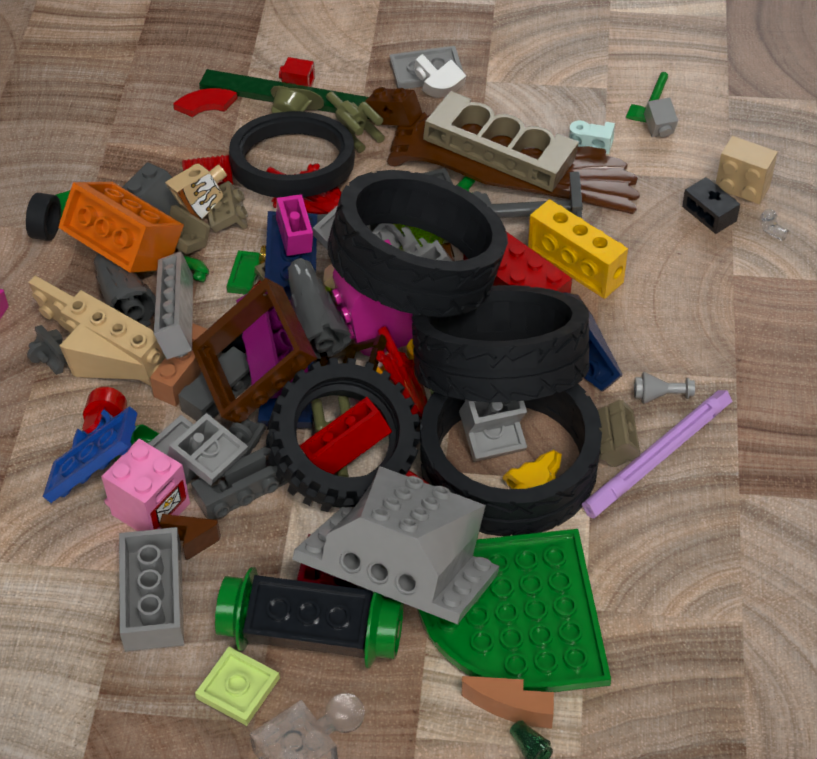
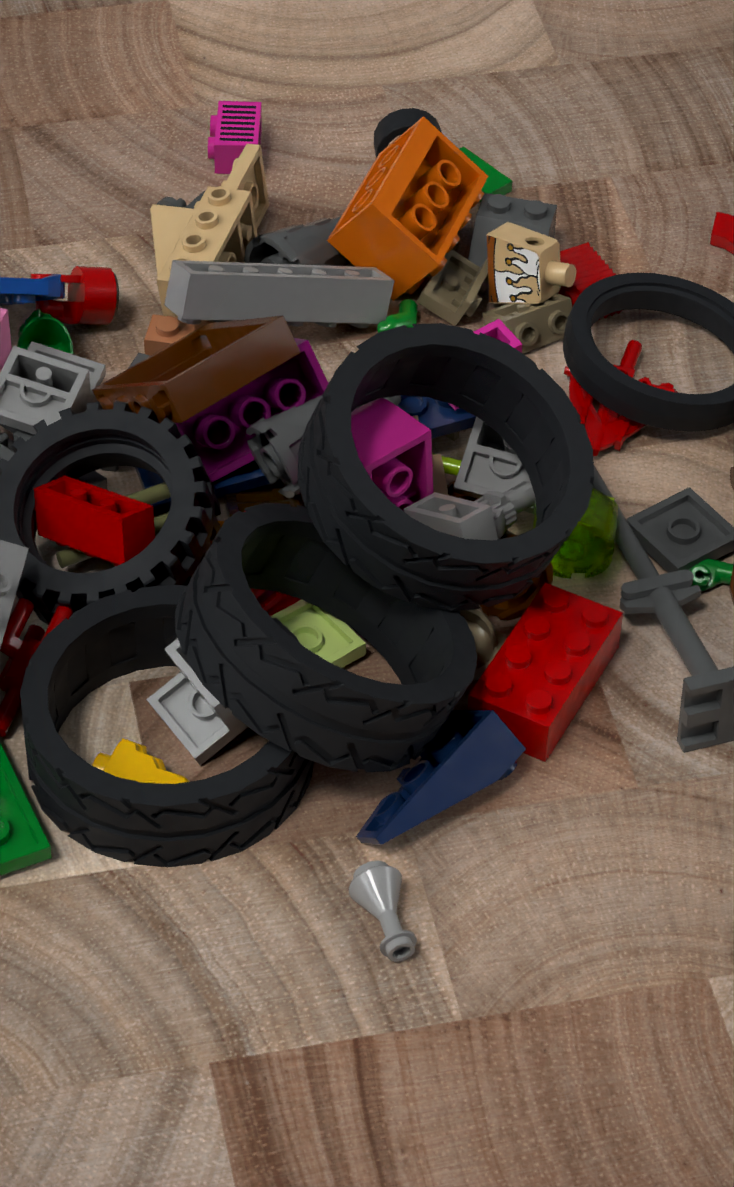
camera: 70 degrees right, 5 degrees down
(577, 248) = (627, 727): yellow brick -> none
(619, 434) = (254, 858): dark tan brick -> none
(656, 453) = (250, 929): lavender piece -> none

